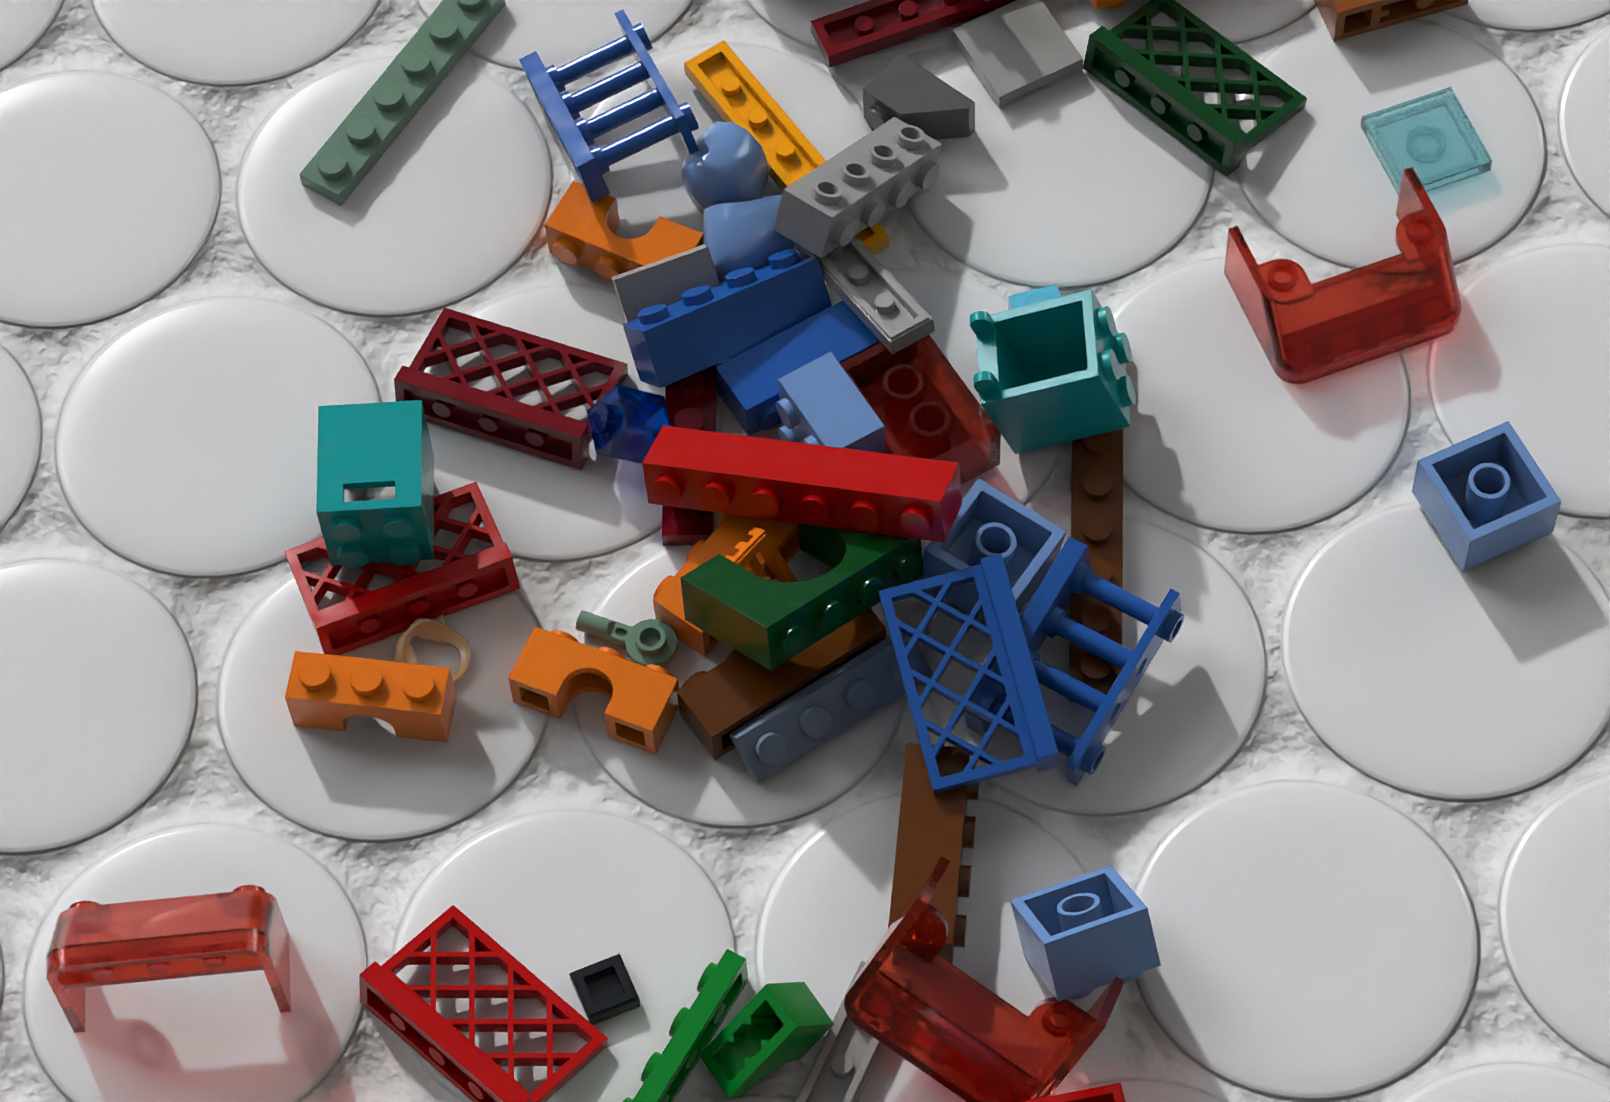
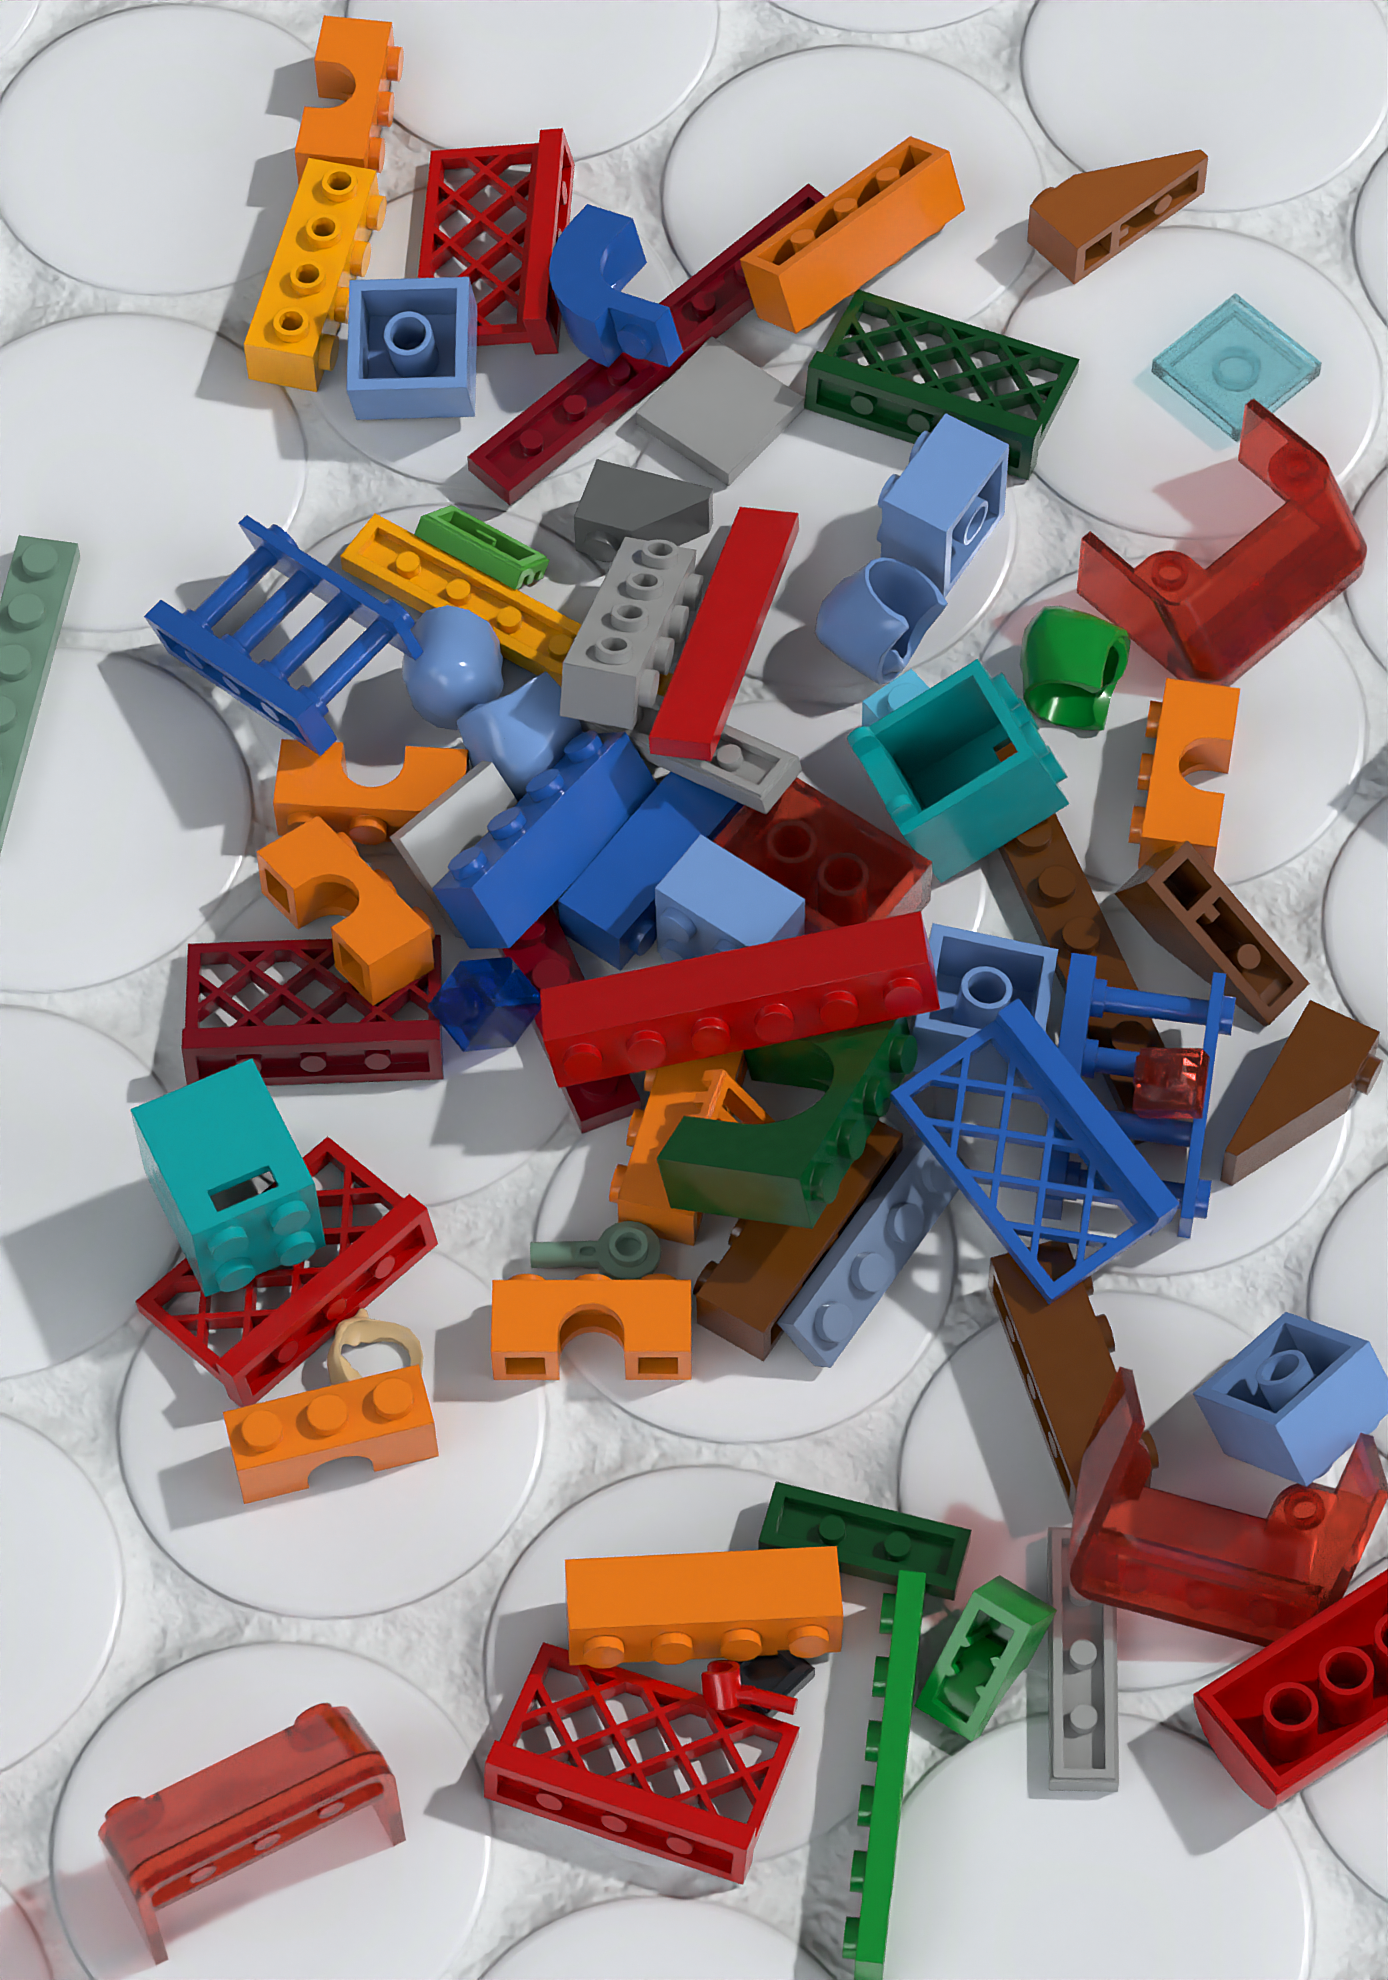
camera: 25 degrees left, 0 degrees up
(557, 290) = (321, 875): none -> orange arch
(563, 990) = (724, 1690): none -> red hand
(575, 922) = (703, 1606): none -> orange brick
(719, 918) = (868, 1538): none -> dark green plate
(791, 90) = (482, 546): none -> bright green tile
(930, 212) = (724, 634): none -> red tile
(1057, 239) = (879, 617): none -> medium blue piece
(1099, 659) = (1170, 1082): none -> clear red tile
(1142, 171) = (944, 501): none -> medium blue brick
(1186, 326) = (1072, 666): none -> green piece
(1198, 563) = (1211, 931): none -> reddish brown slope
(1210, 705) = (1306, 1088): none -> reddish brown slope
(1252, 405) = (1192, 735): none -> orange arch

